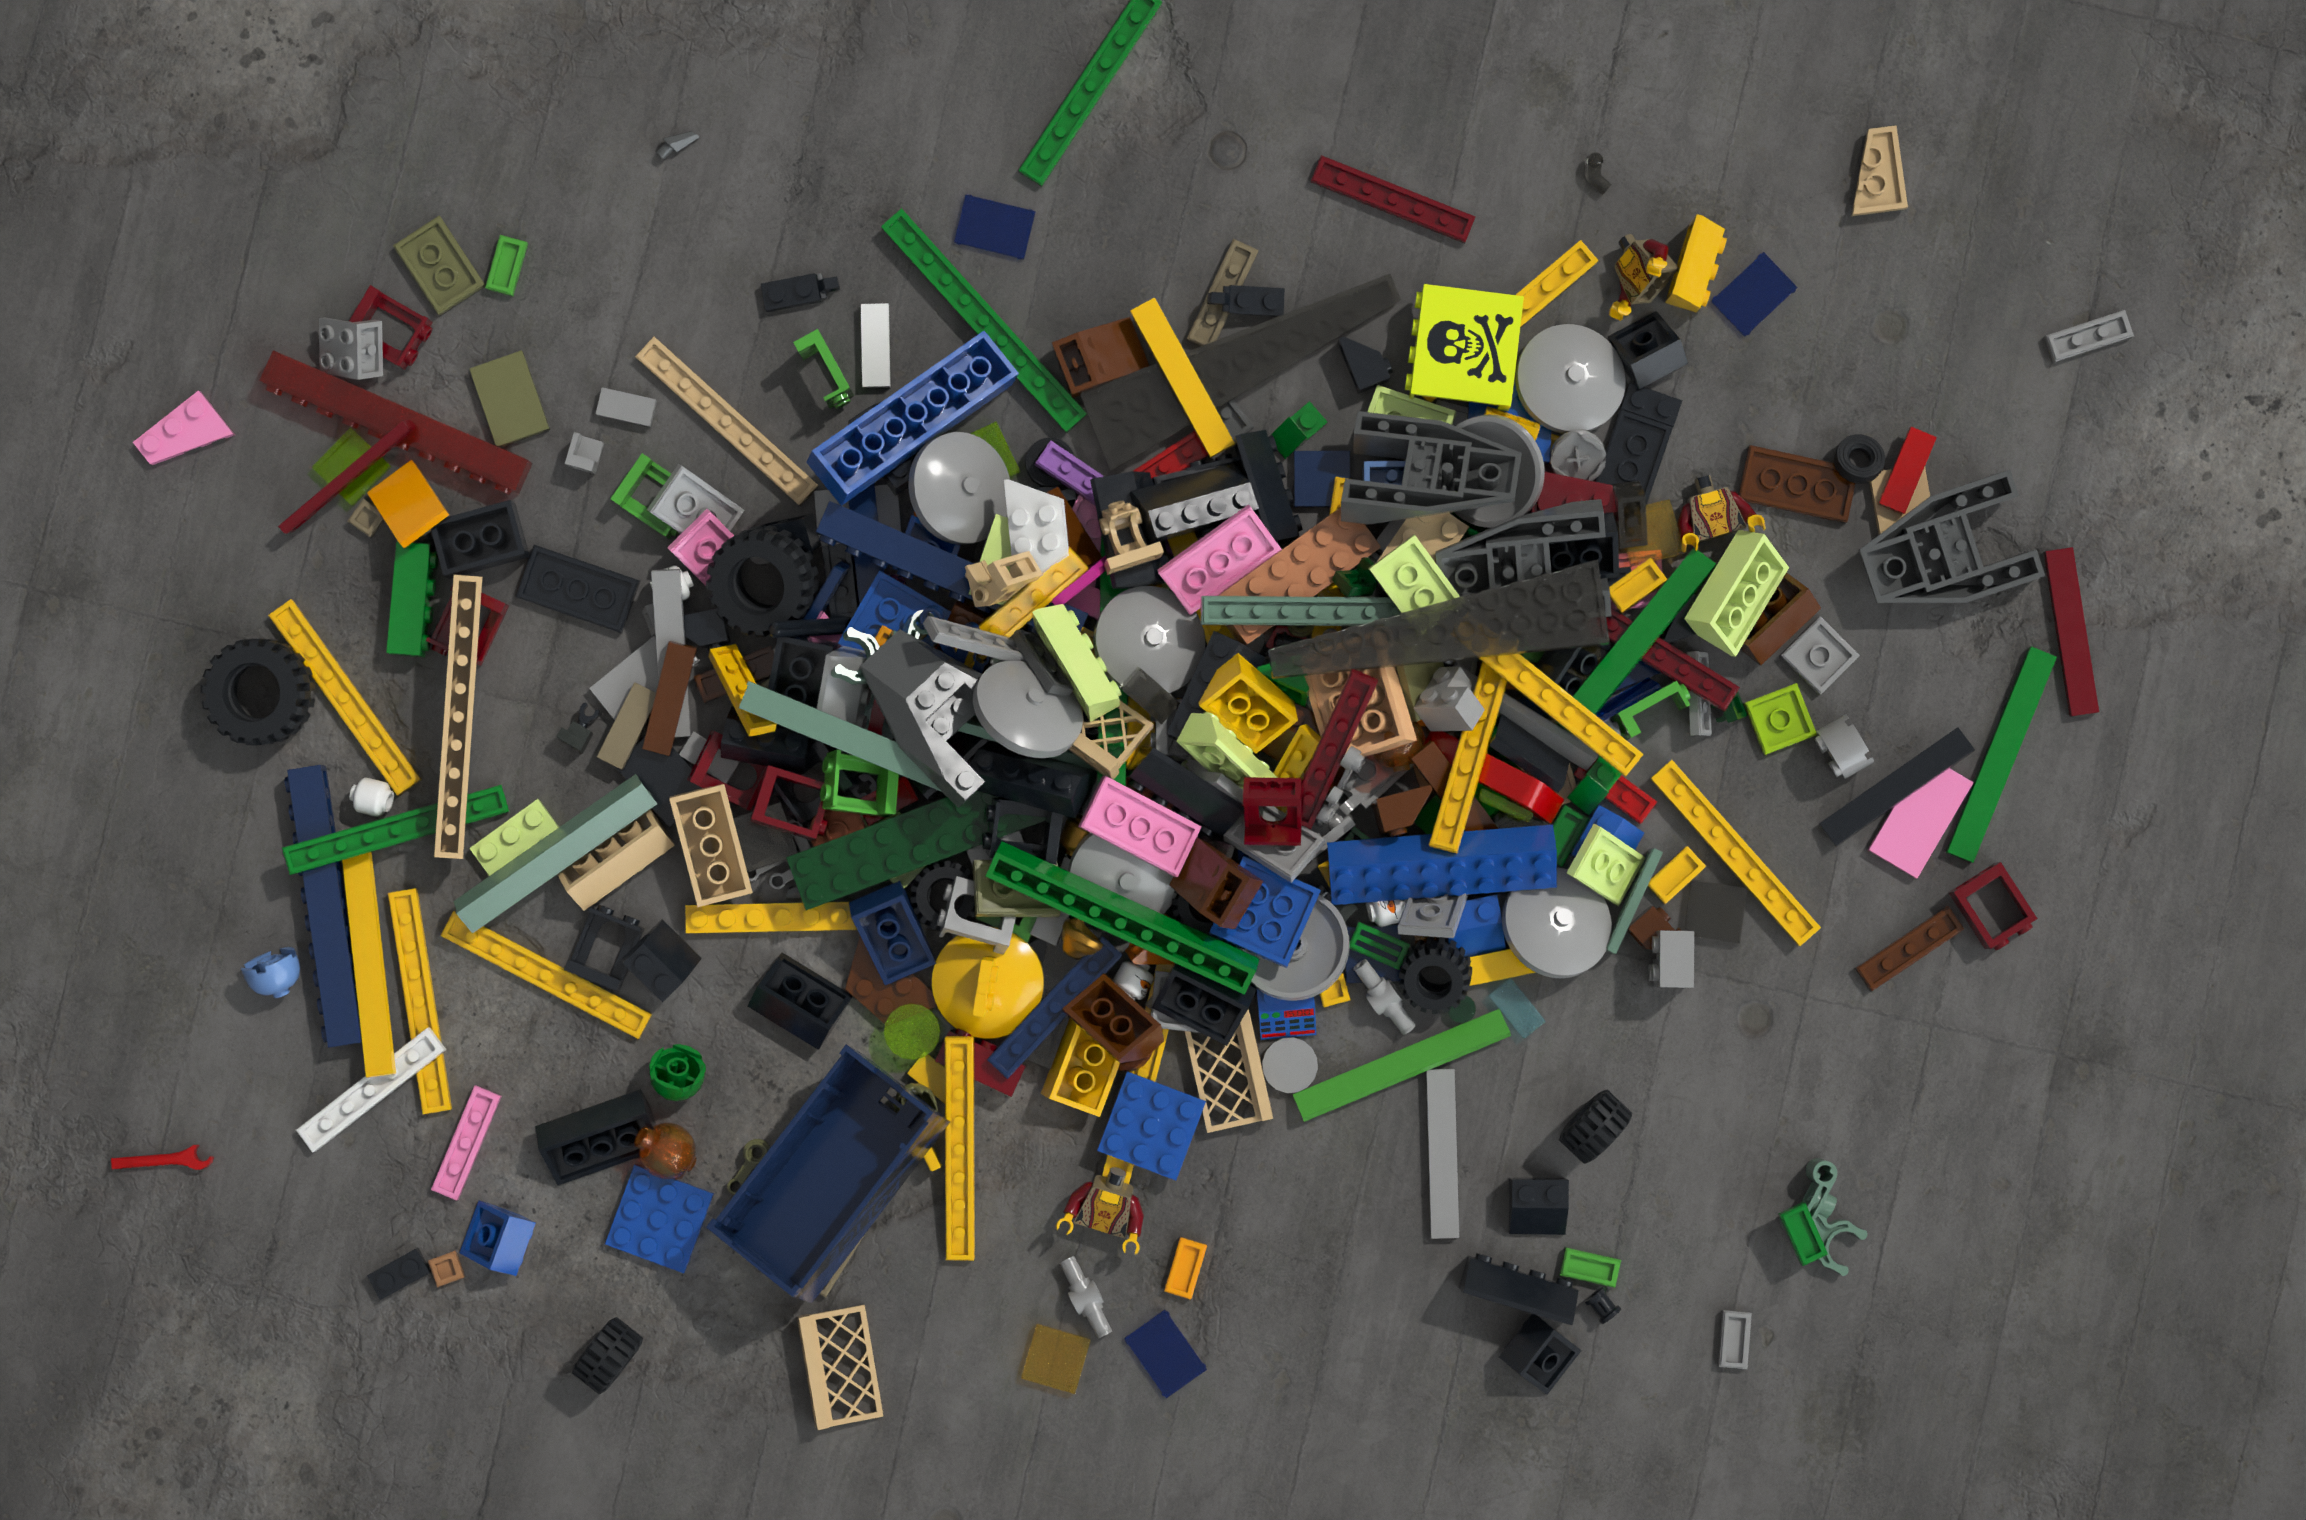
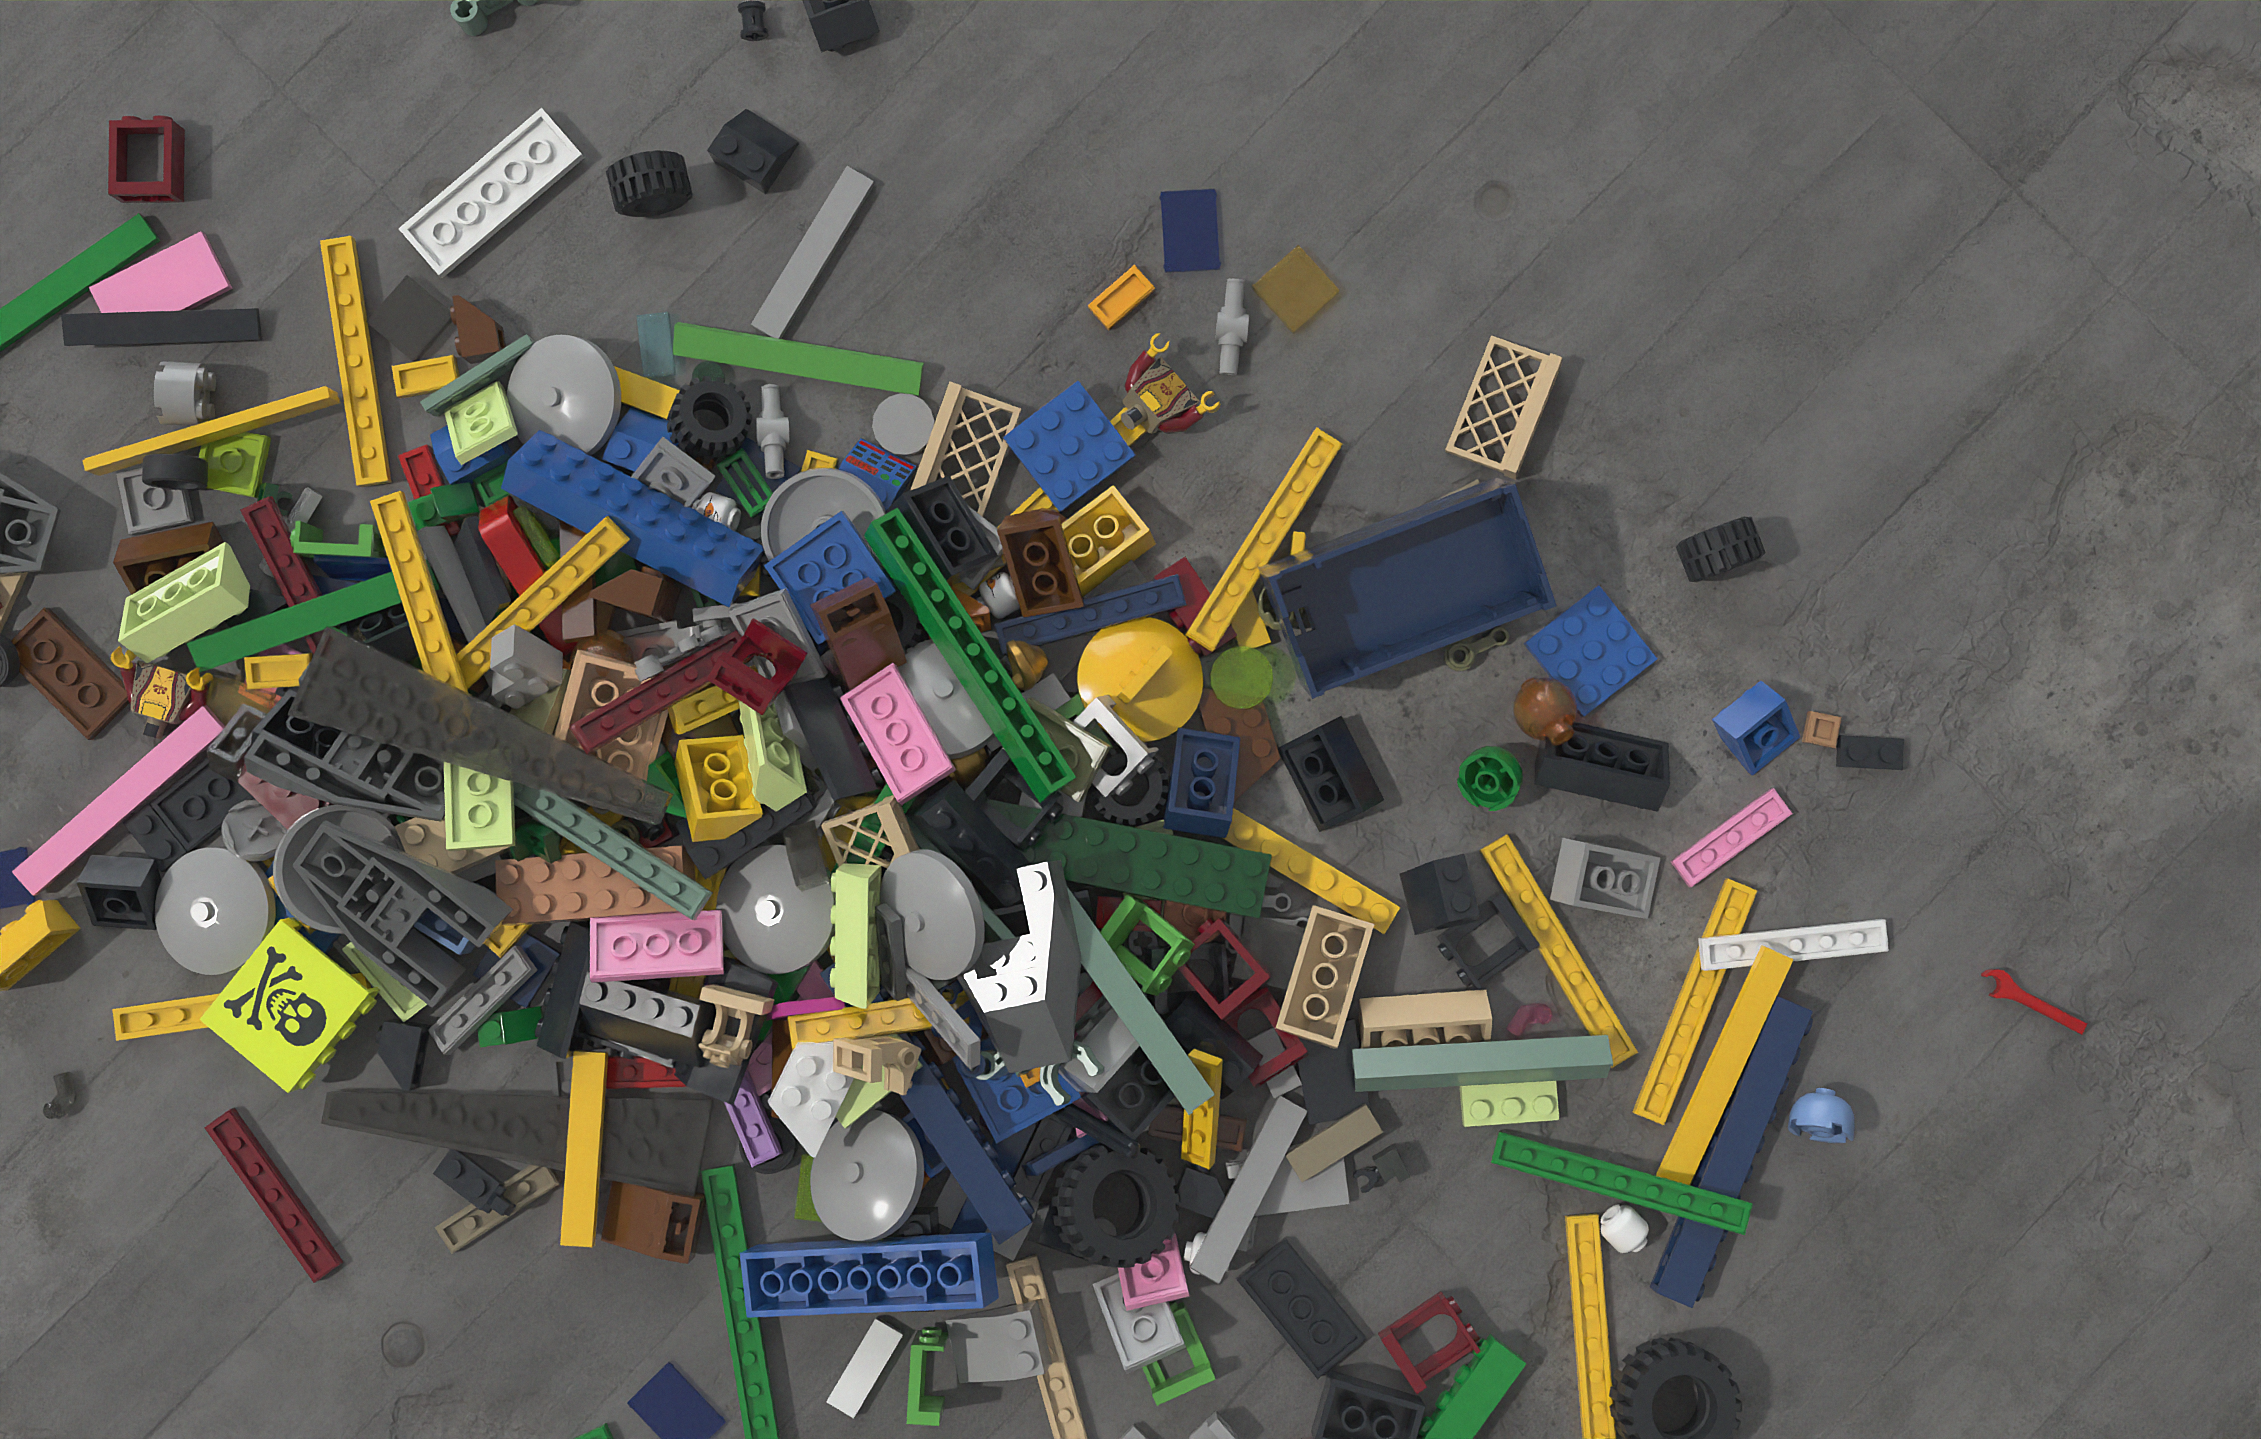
camera: 150 degrees left, 0 degrees up
(458, 716) = (1494, 1258): tan brick -> none
(538, 913) = (1527, 1015): none -> clear pink arm
(544, 1051) = (1604, 878): none -> light grey slope
(669, 698) = (1277, 1145): reddish brown tile -> none
(786, 424) = (999, 1344): none -> light grey slope
(1329, 437) = (482, 1000): none -> light grey tile
(1519, 1289) = (820, 80): black slope -> none
(1590, 1267) = (742, 64): bright green tile -> none
(1641, 272) = (74, 971): torso -> none
(1673, 959) = (473, 291): light grey brick -> none
(1694, 416) = (119, 800): none -> bright pink tile
(1716, 1046) = (491, 193): none -> white plate
(1805, 732) = (212, 430): none -> yellow tile
(1809, 684) = (175, 472): none -> black tyre
(1909, 948) = (252, 172): reddish brown tile -> none

